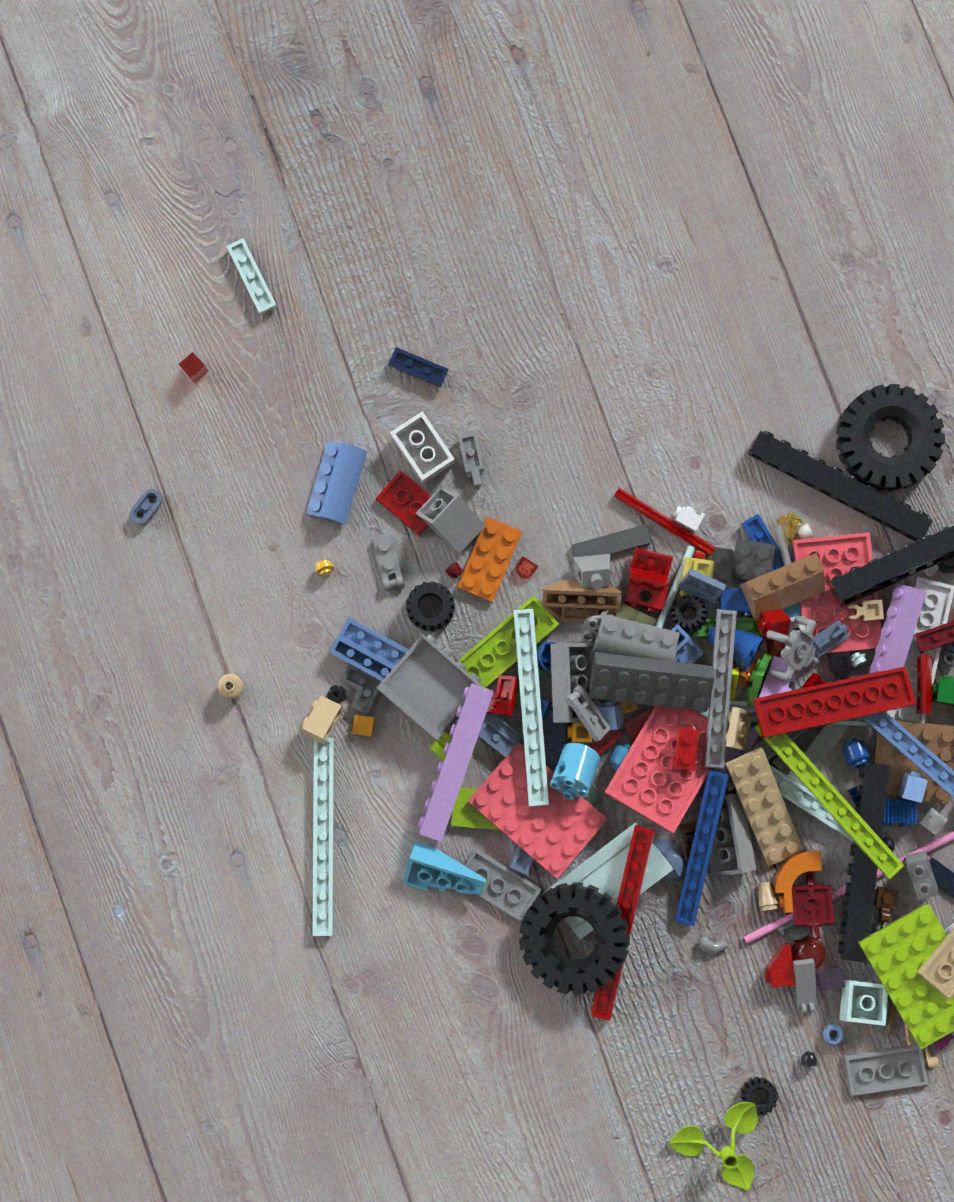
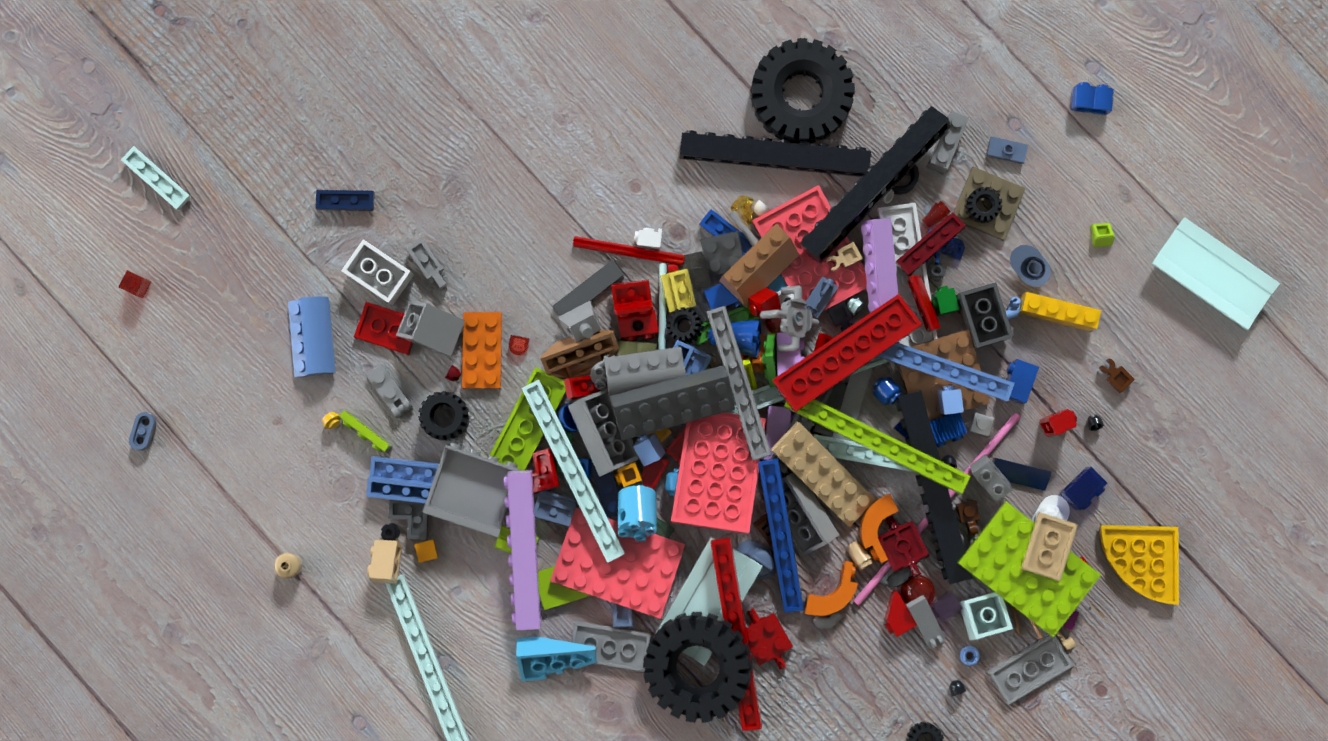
camera: 25 degrees left, 0 degrees up
(350, 591) = (365, 432): none -> lime plate
(568, 631) = (579, 387): none -> red slope
(588, 713) = (626, 455): light grey plate -> none
(649, 939) = (767, 638): none -> red plate
(685, 751) = (729, 453): red brick -> none
(701, 586) = (685, 296): sand blue plate -> none
(728, 929) = (836, 600): none -> orange arch
(739, 729) = (770, 412): tan plate -> none

